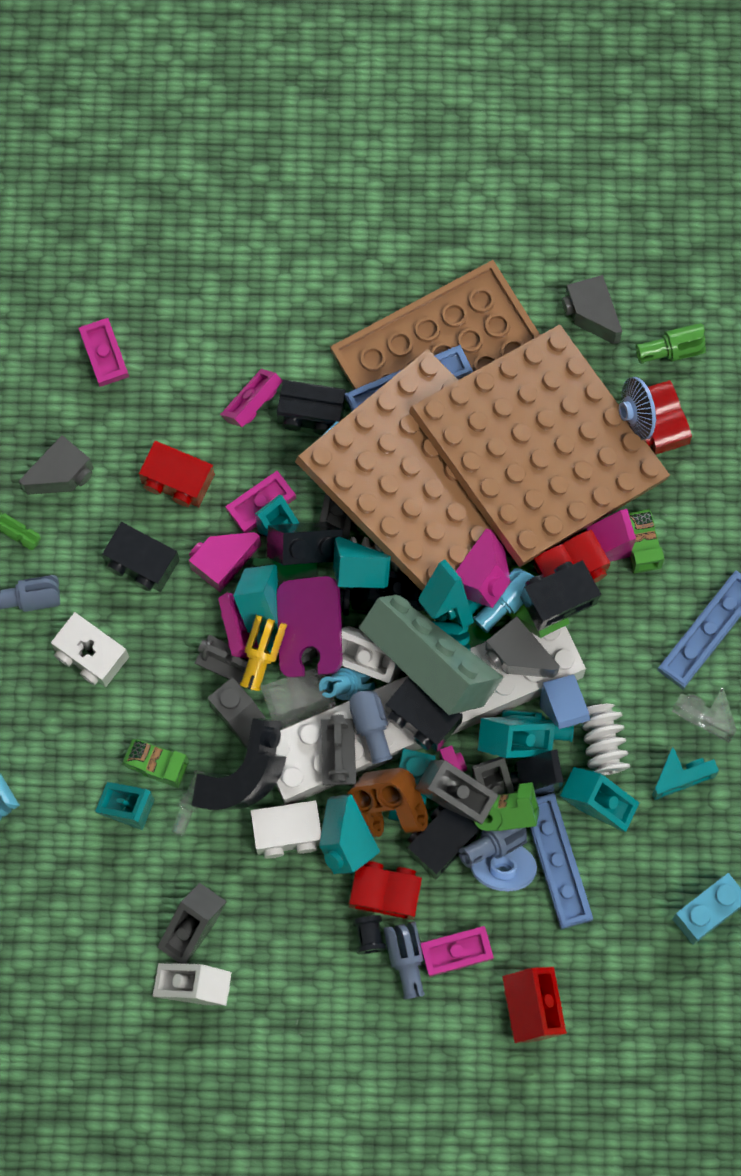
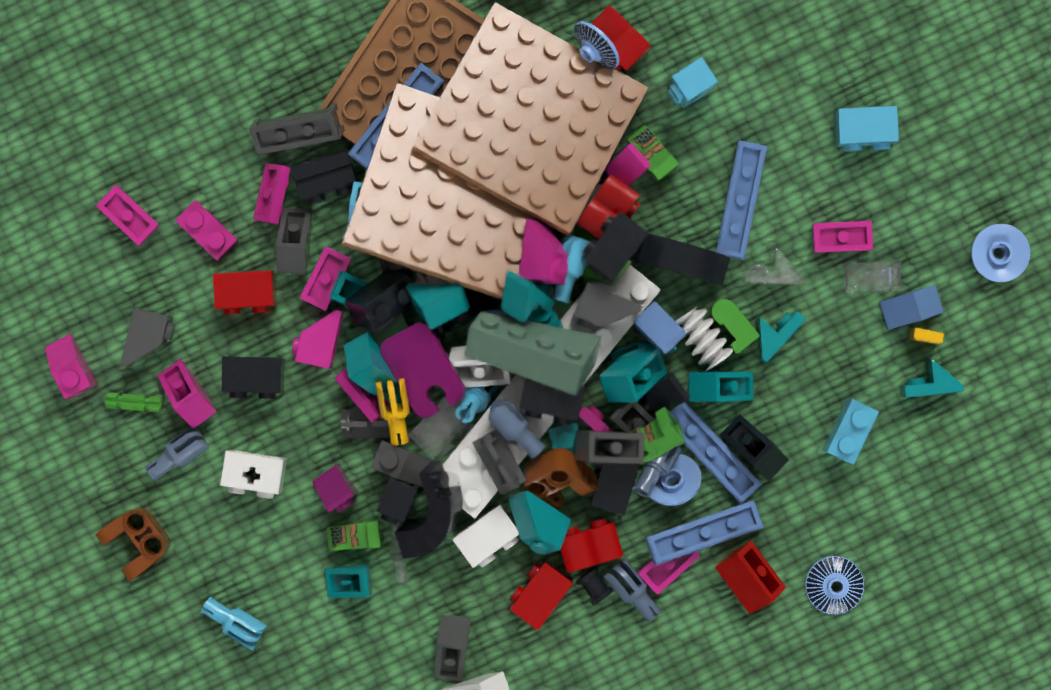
camera: 25 degrees left, 15 degrees up
(66, 544) = (186, 394): none -> dark pink slope
(161, 705) = (335, 489): none -> magenta slope
(170, 403) = (206, 230): none -> dark pink plate
(217, 743) = (397, 500): none -> black brick
(248, 452) = (293, 241): none -> dark grey slope
(307, 348) = (296, 130): none -> dark grey container
(310, 914) = (540, 594): none -> red brick
(509, 936) = (704, 532): none -> medium blue tile
(604, 877) = (754, 447): none -> black slope
(613, 1081) = (822, 576): none -> dish
(621, 648) = (682, 259): none -> black arch
(644, 743) = (735, 323): none -> bright green leg
(714, 489) = (691, 83): none -> medium azure brick

